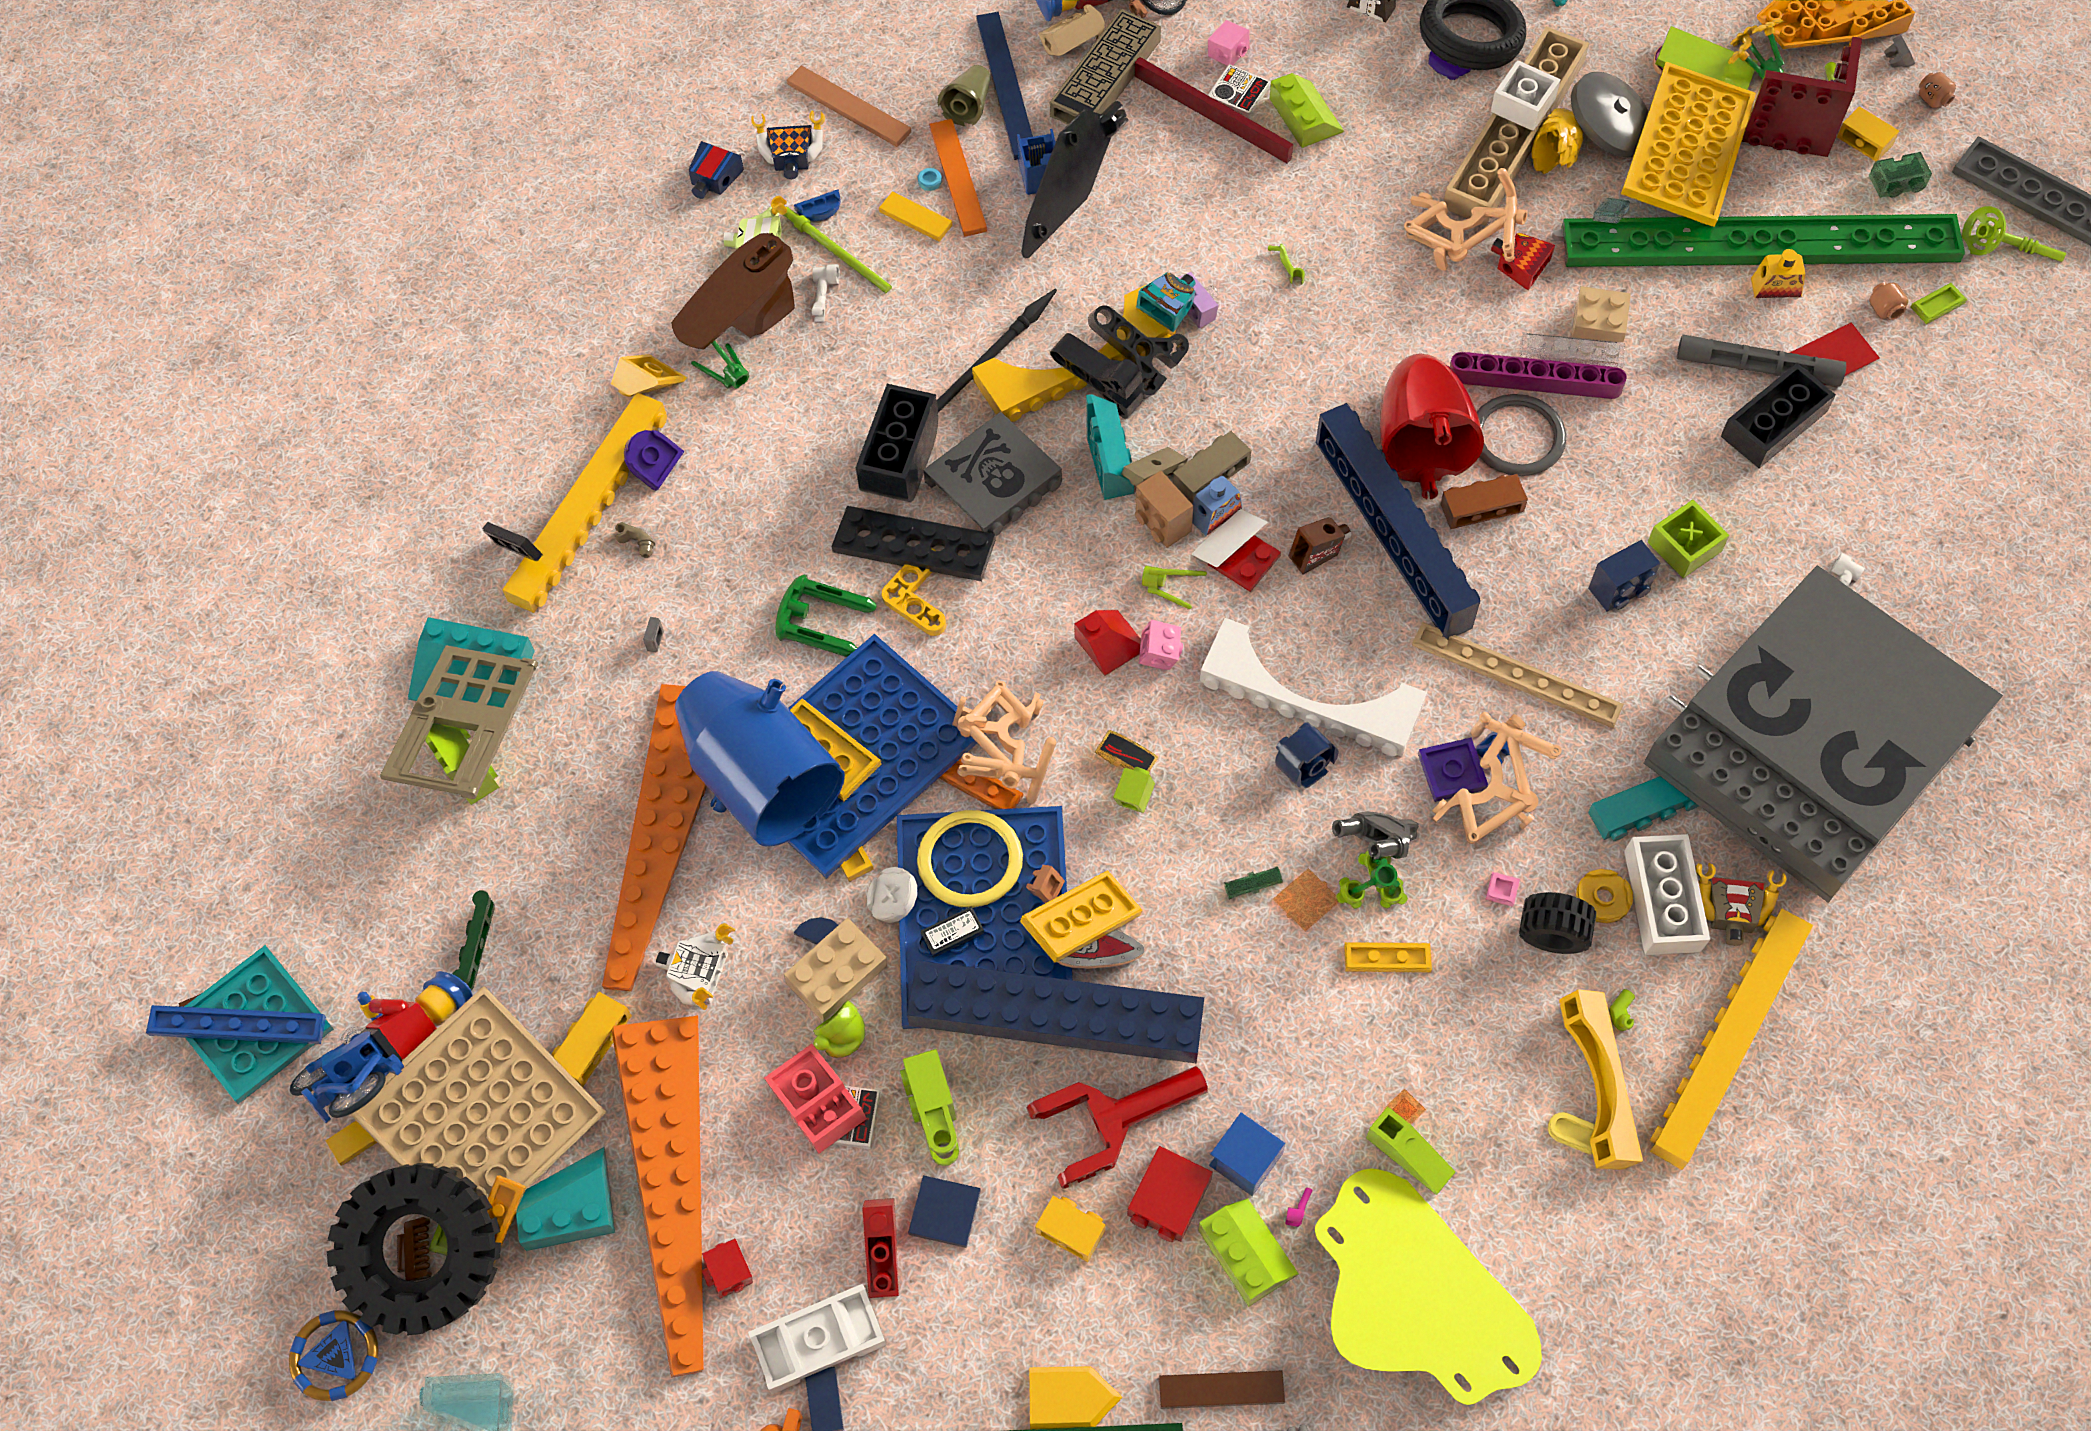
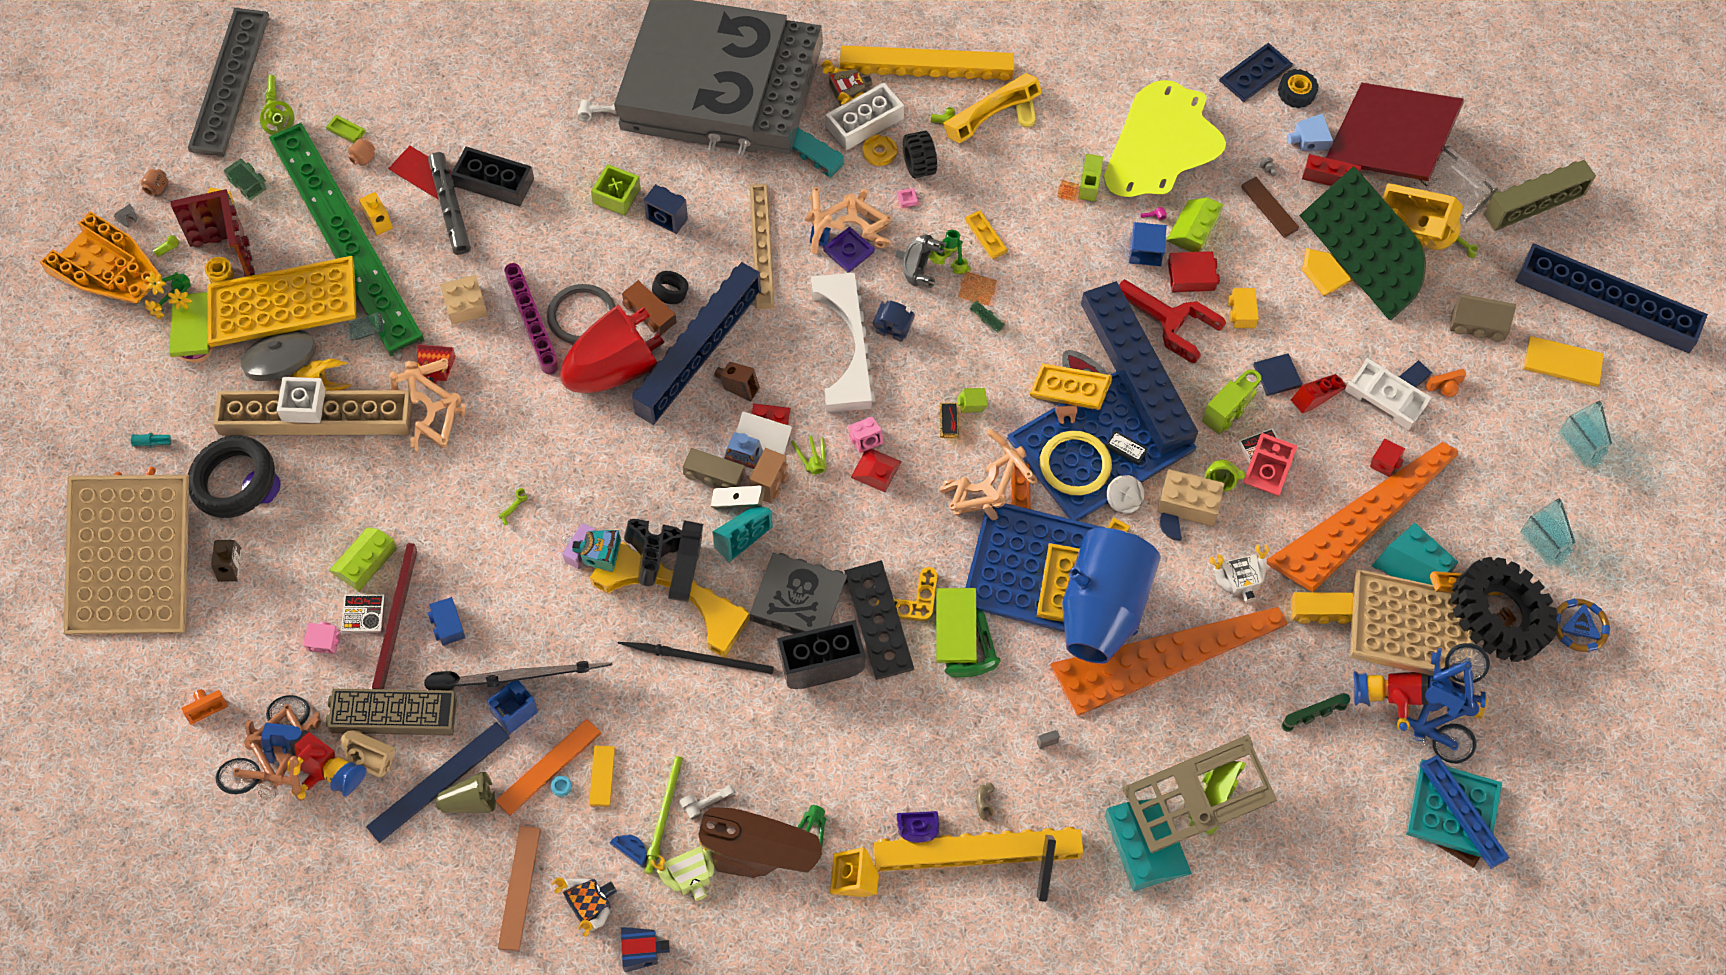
camera: 125 degrees left, 0 degrees up
(847, 608) = (956, 625): none -> lime tile
(1179, 151) = (447, 621): none -> blue brick
(1519, 529) = (666, 295): none -> black tyre

